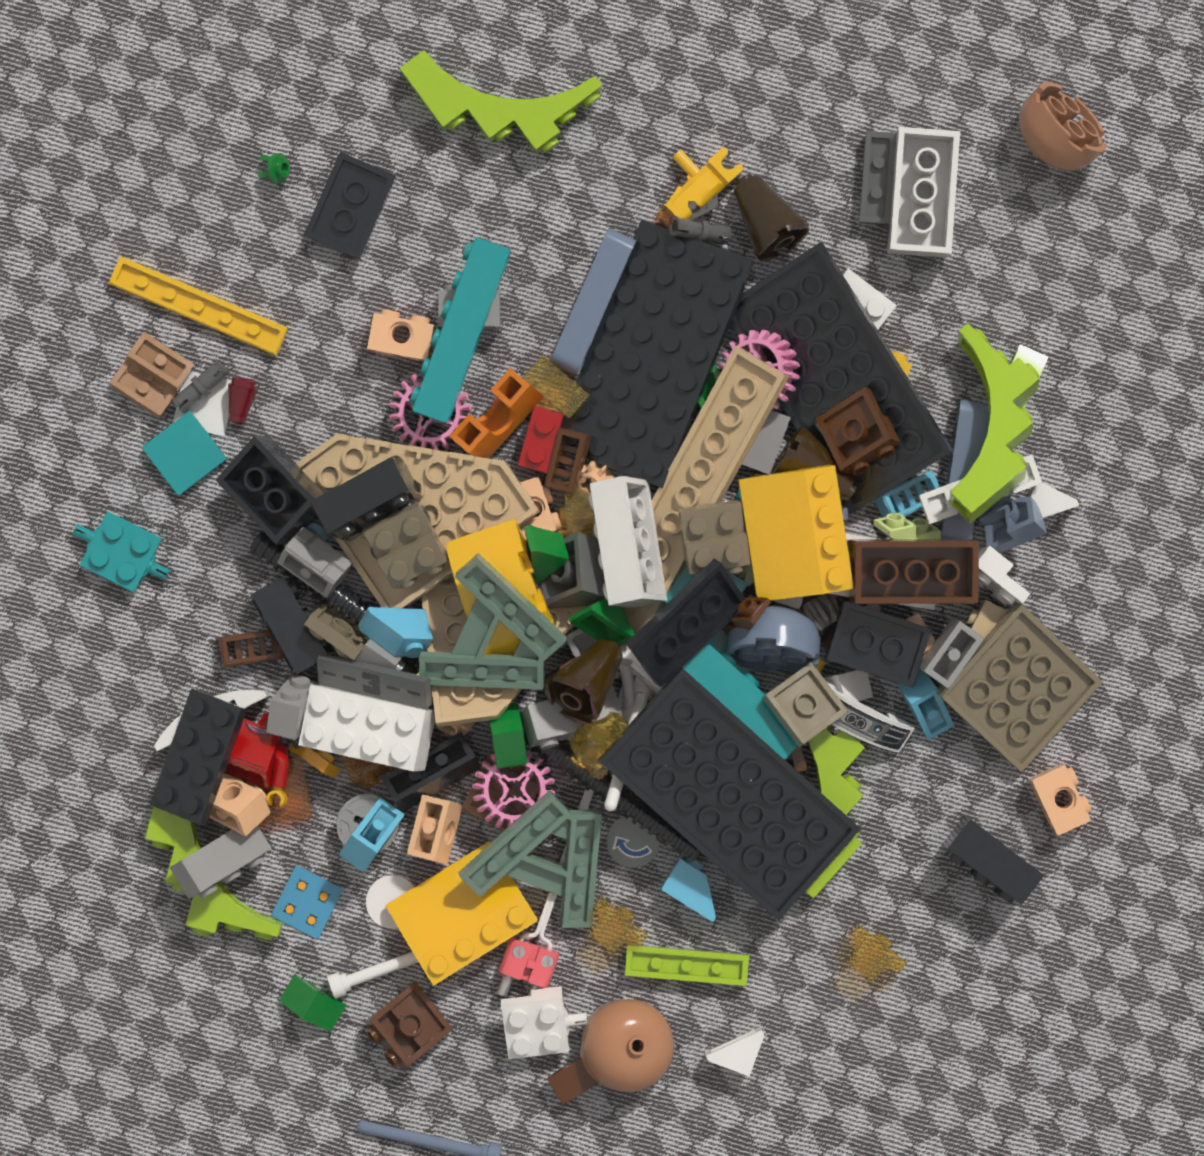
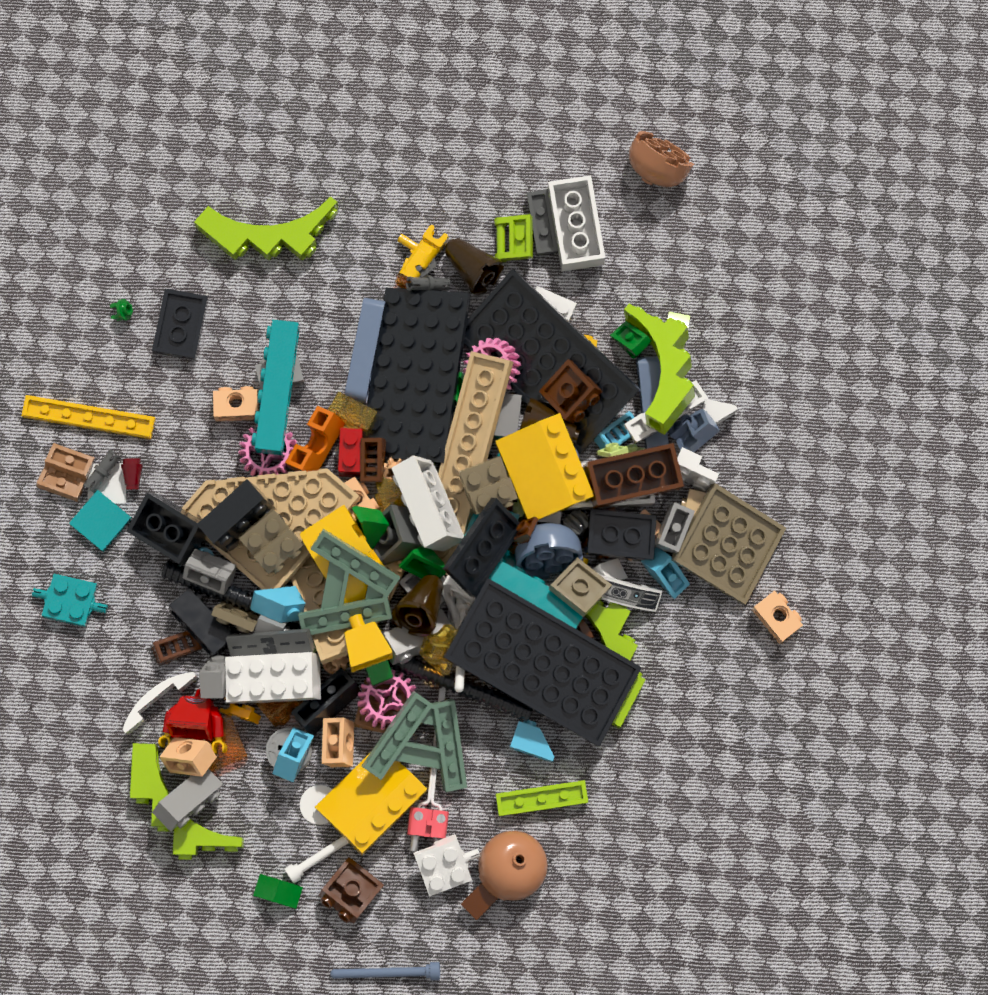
camera: 15 degrees left, 10 degrees down
(198, 757) = (155, 728): black plate -> none
(307, 902) = (257, 819): dark azure sticker -> none
(499, 718) = (365, 644): none -> yellow torso
(615, 926) = (484, 781): clear yellow brick -> none
(630, 844) = (481, 721): light grey sticker -> none
(738, 1053) = (595, 853): white slope -> none
(841, 193) = (519, 237): none -> lime plate
(873, 953) = (673, 757): clear yellow brick -> none
(958, 372) = (631, 339): none -> green slope
(991, 861) = (740, 670): black brick -> none

